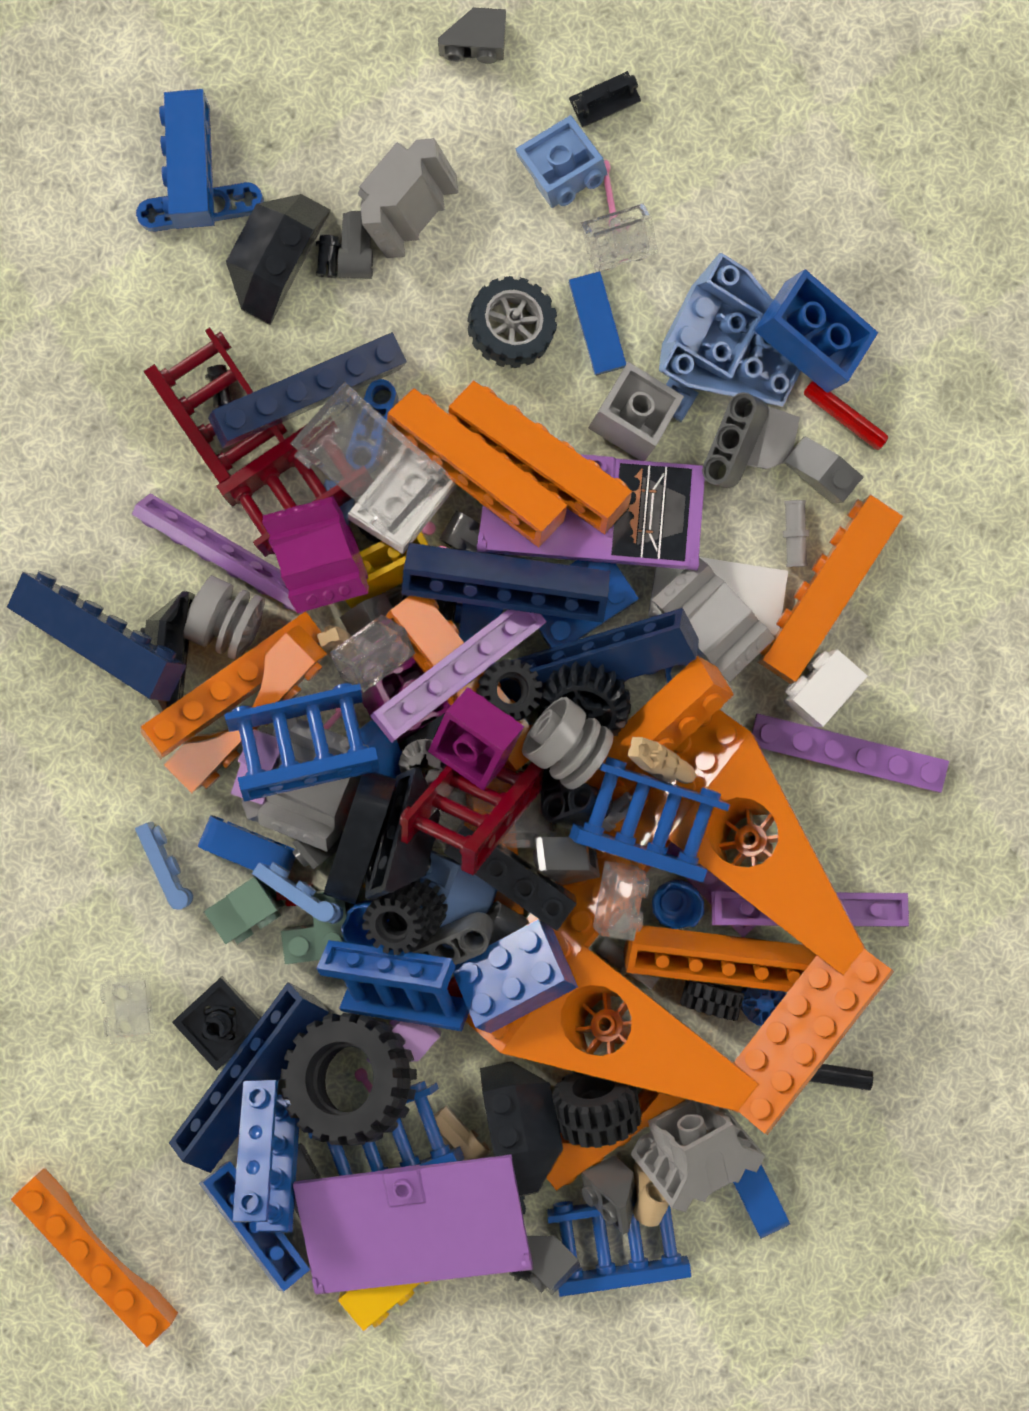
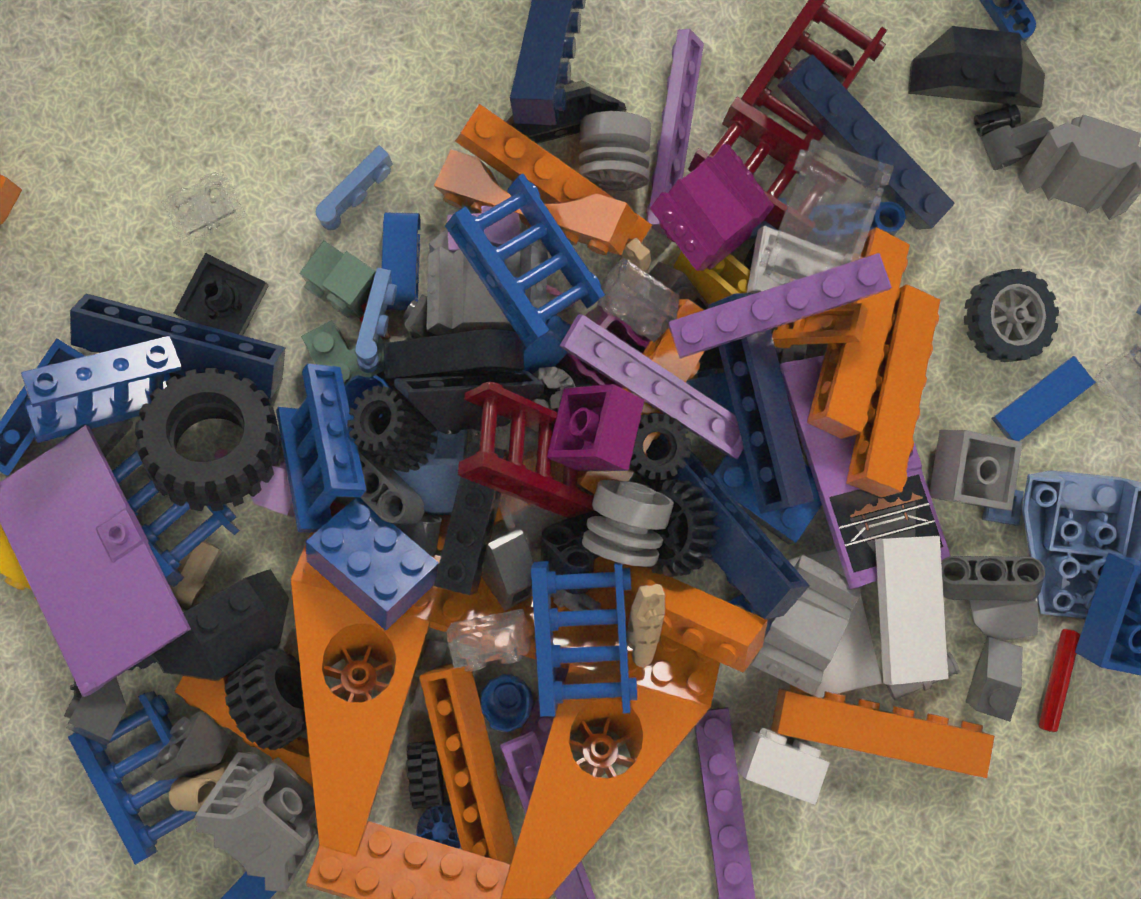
camera: 60 degrees right, 5 degrees down
(430, 535) = (779, 305): none -> medium lavender plate
(457, 501) = (835, 325): none -> orange plate
(735, 522) = (911, 609): none -> white tile

